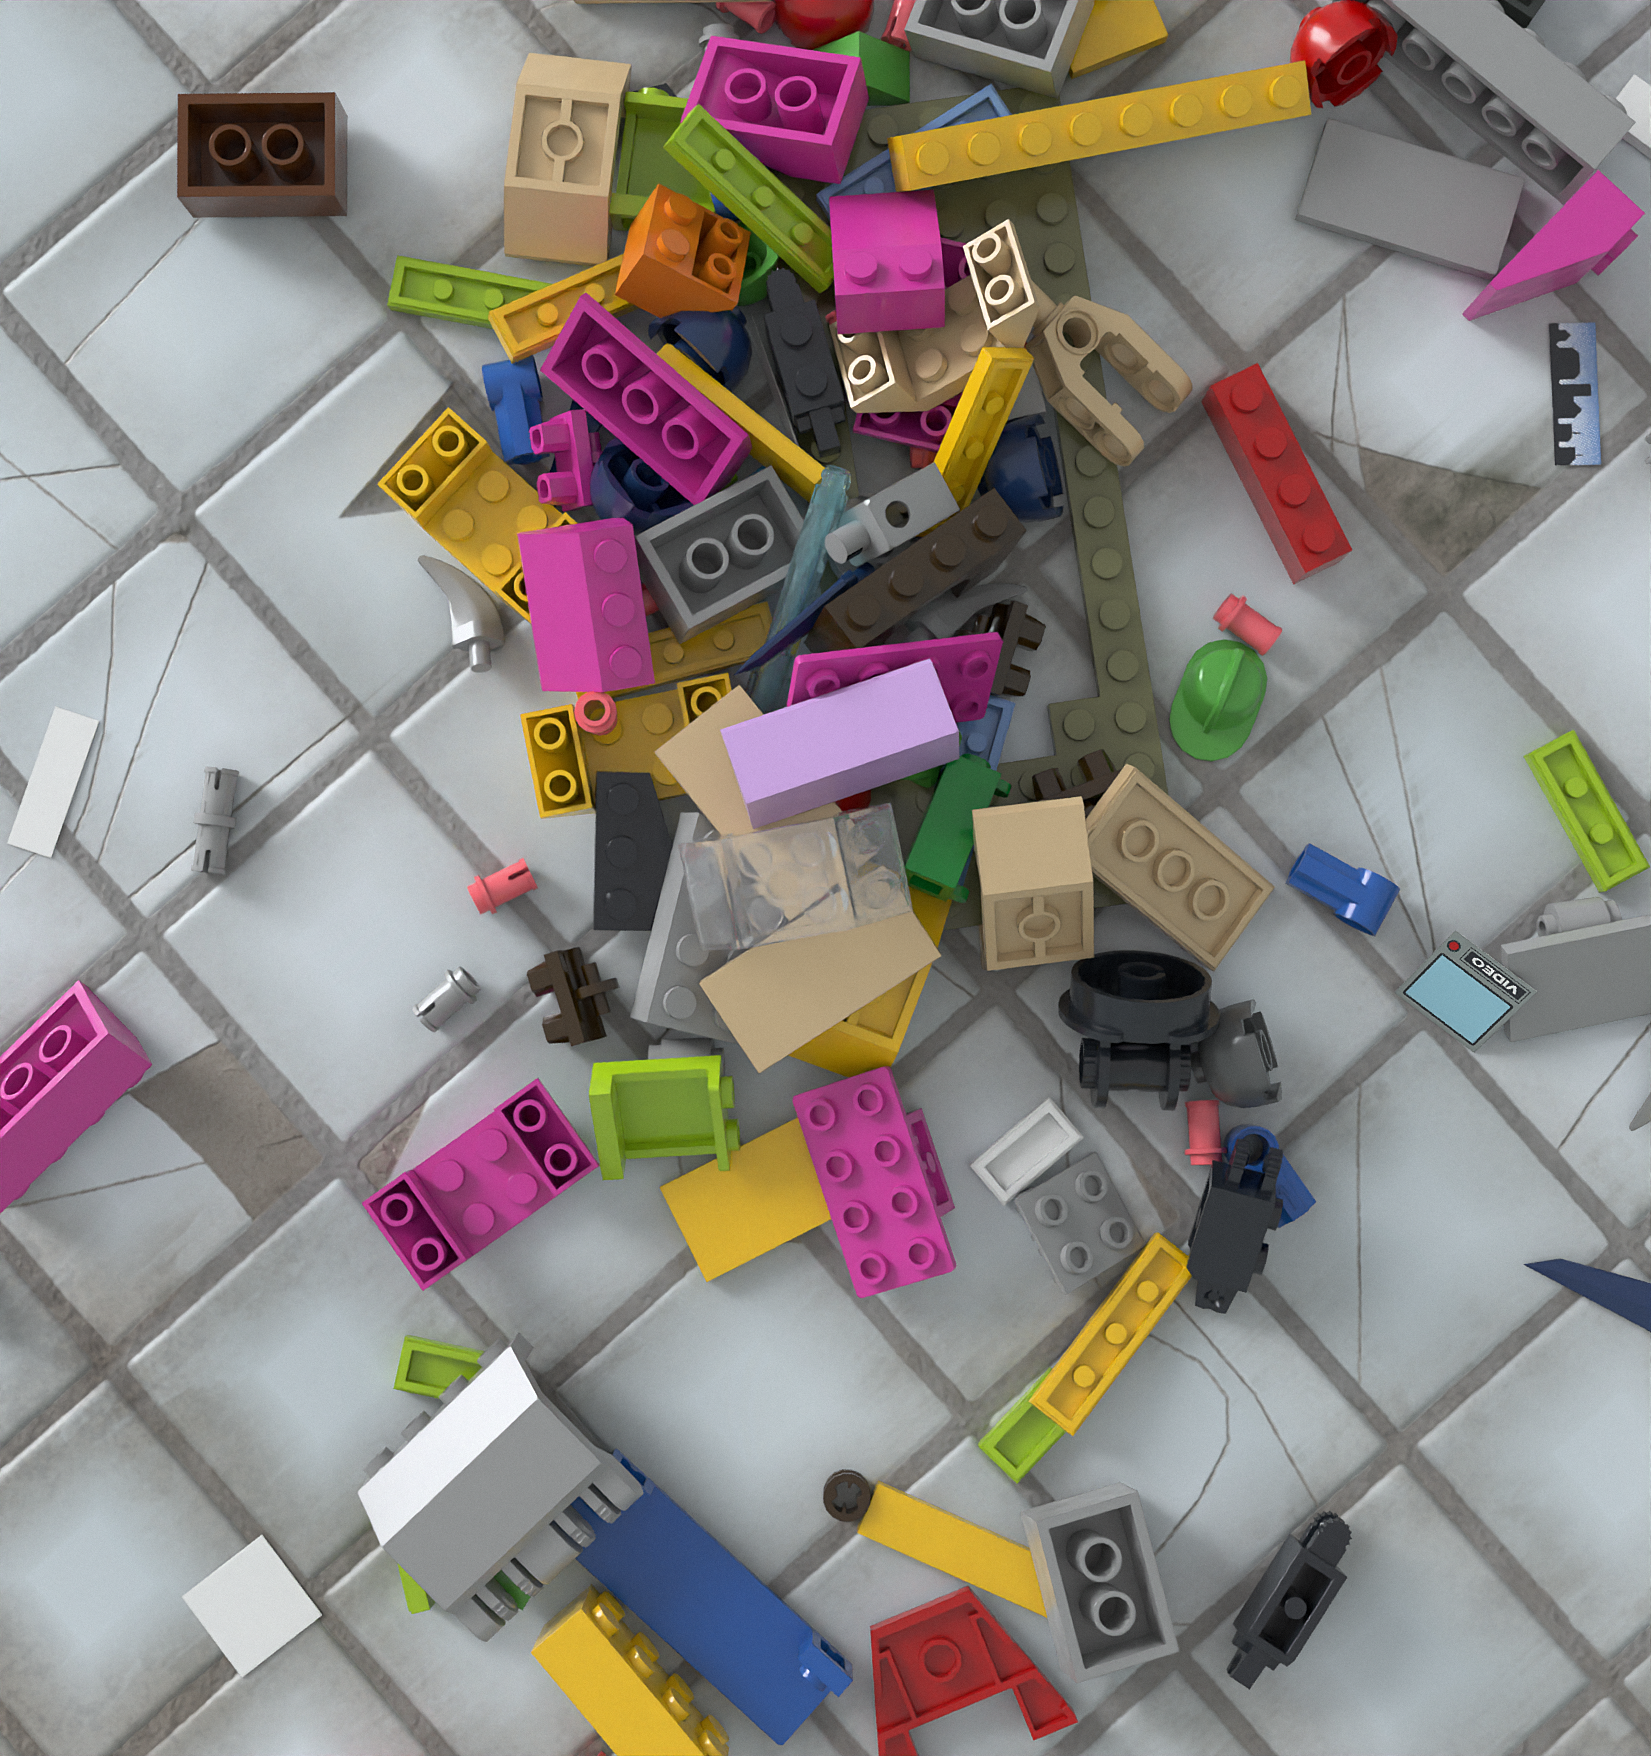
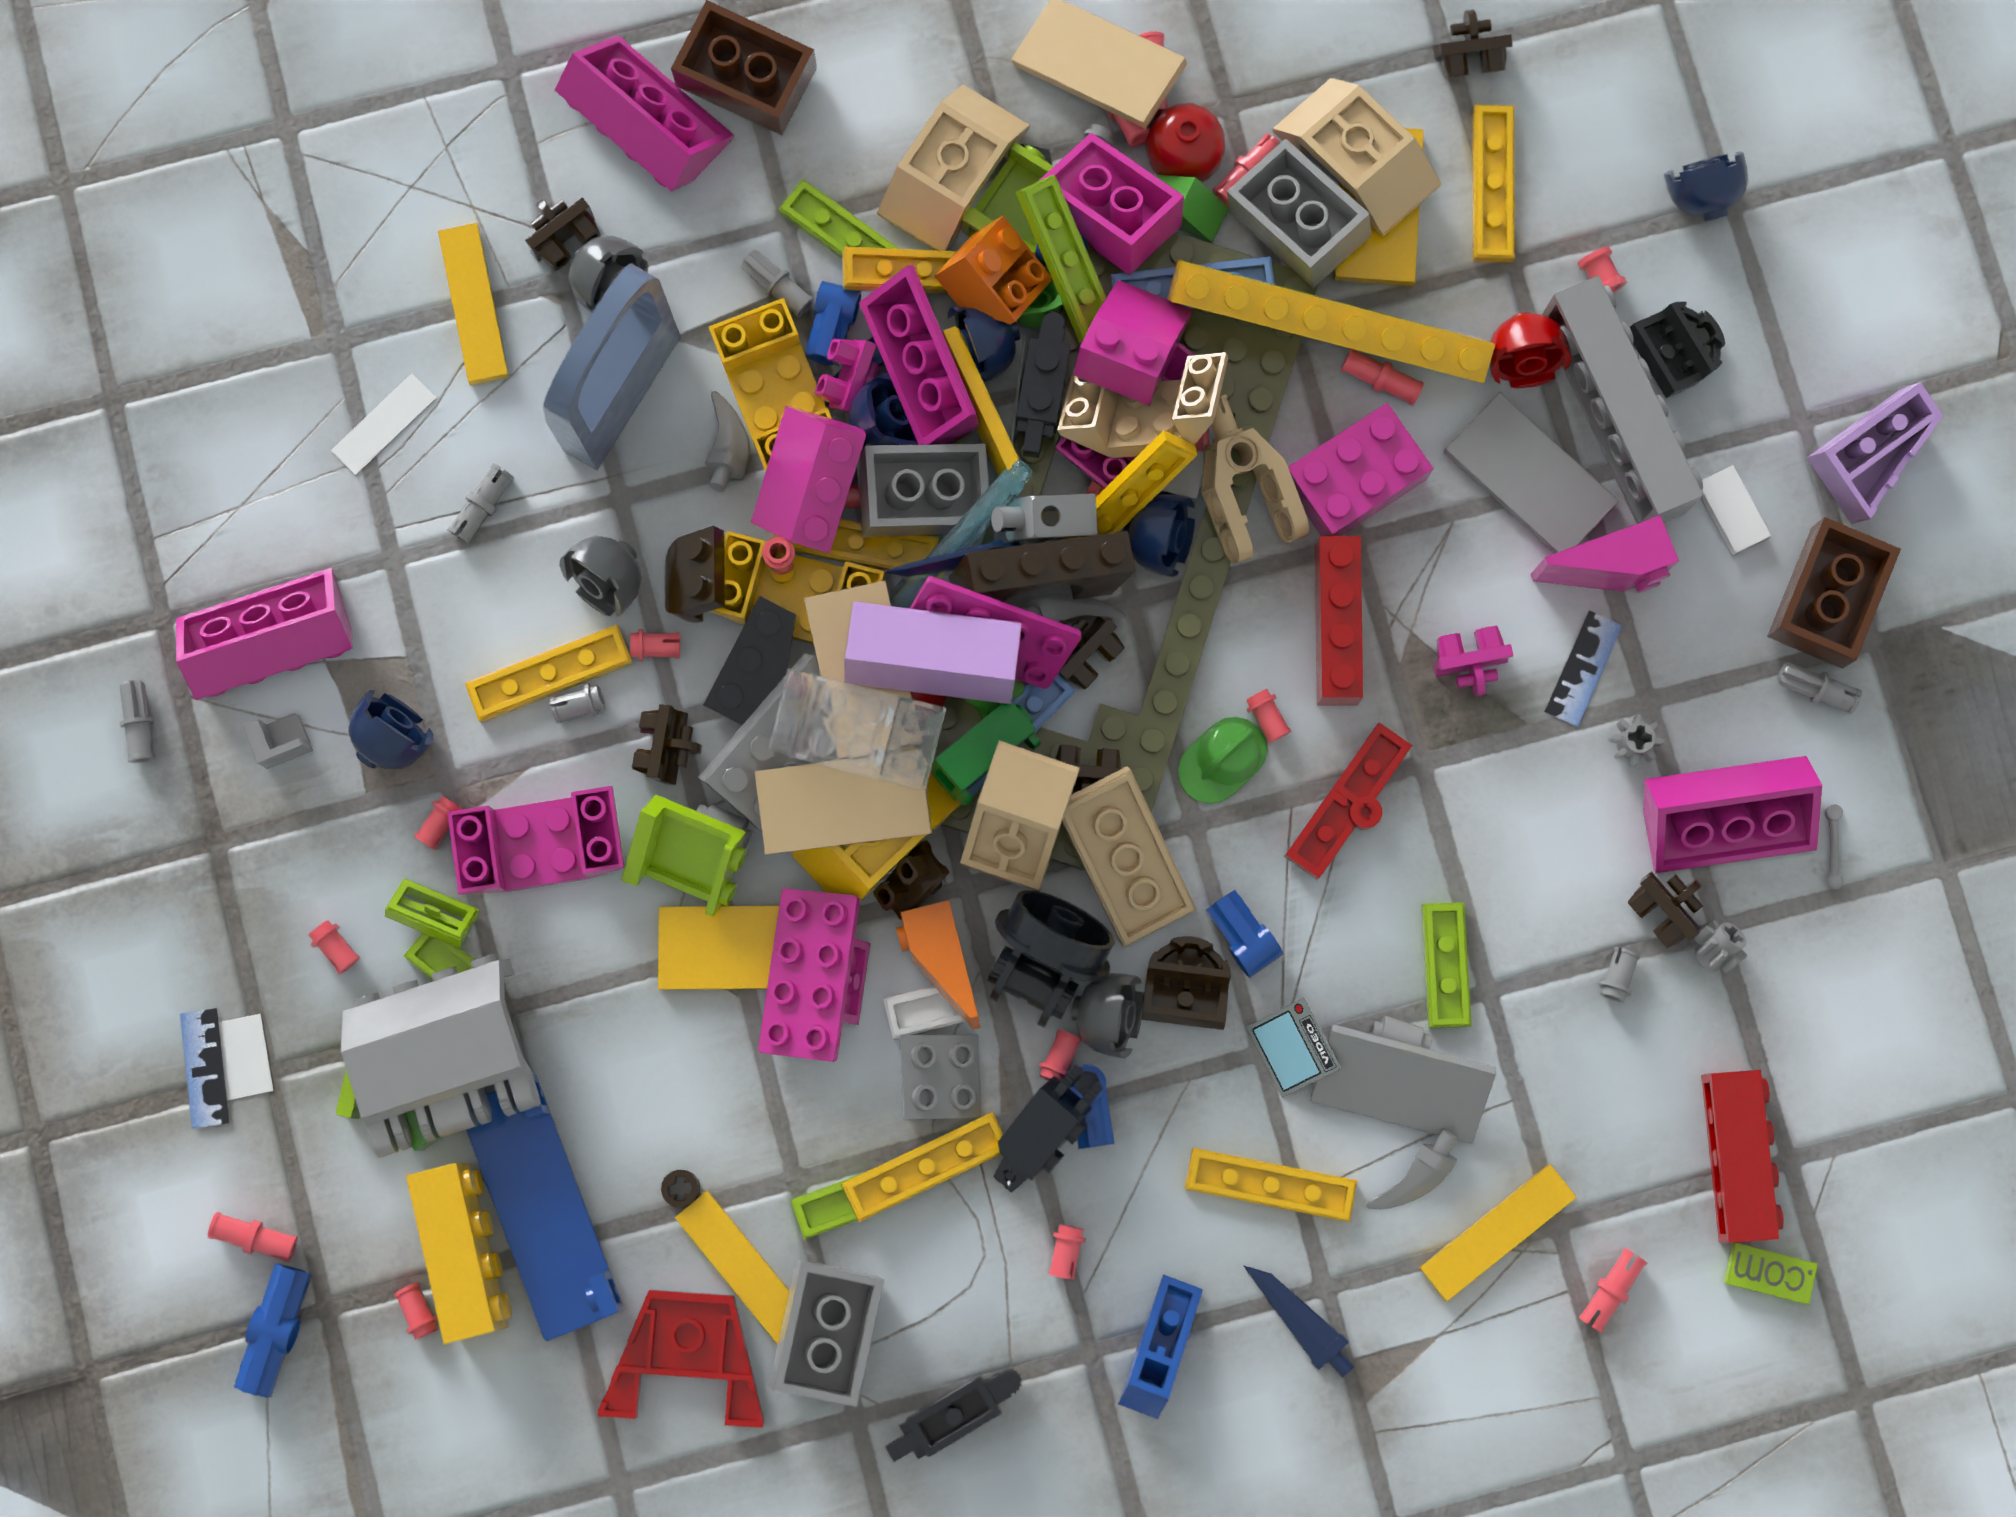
camera: 25 degrees right, 5 degrees down
(86, 590) = (473, 304): none -> yellow tile
(119, 1212) = (277, 740): none -> light grey panel
(138, 449) = (556, 227): none -> dark brown hips
(168, 266) = (642, 112): none -> dark pink slope
(224, 479) = (598, 265): none -> dark grey cylinder
(229, 1629) = (204, 1068): none -> sticker
(243, 1142) = (387, 732): none -> dark blue cylinder
(288, 586) = (610, 366): none -> sand blue window
(307, 1418) = (333, 946): none -> coral pin
(354, 1218) = (437, 823): none -> coral pin
(394, 979) = (548, 673): none -> yellow tile
(401, 1342) = (429, 918): none -> lime tile
(402, 832) = (605, 572): none -> dark grey cylinder
(429, 393) = (777, 283): none -> light grey axle
(509, 783) = (695, 574): none -> dark brown slope
(938, 1017) = (912, 880): none -> dark brown hips
(1009, 1084) = (937, 953): none -> orange slope
(1184, 164) = (1382, 376): none -> coral pin
(1216, 288) = (1359, 472): none -> dark pink brick
(1308, 979) = (1187, 985): none -> dark brown slope
(1320, 1349) = (1066, 1251): none -> coral pin
(1388, 677) = (1349, 802): none -> red hinge
(1463, 424) = (1489, 652): none -> dark pink hips
(1482, 1406) = (1160, 1347): none -> blue slope
(1511, 1158) = (1271, 1184): none -> yellow tile

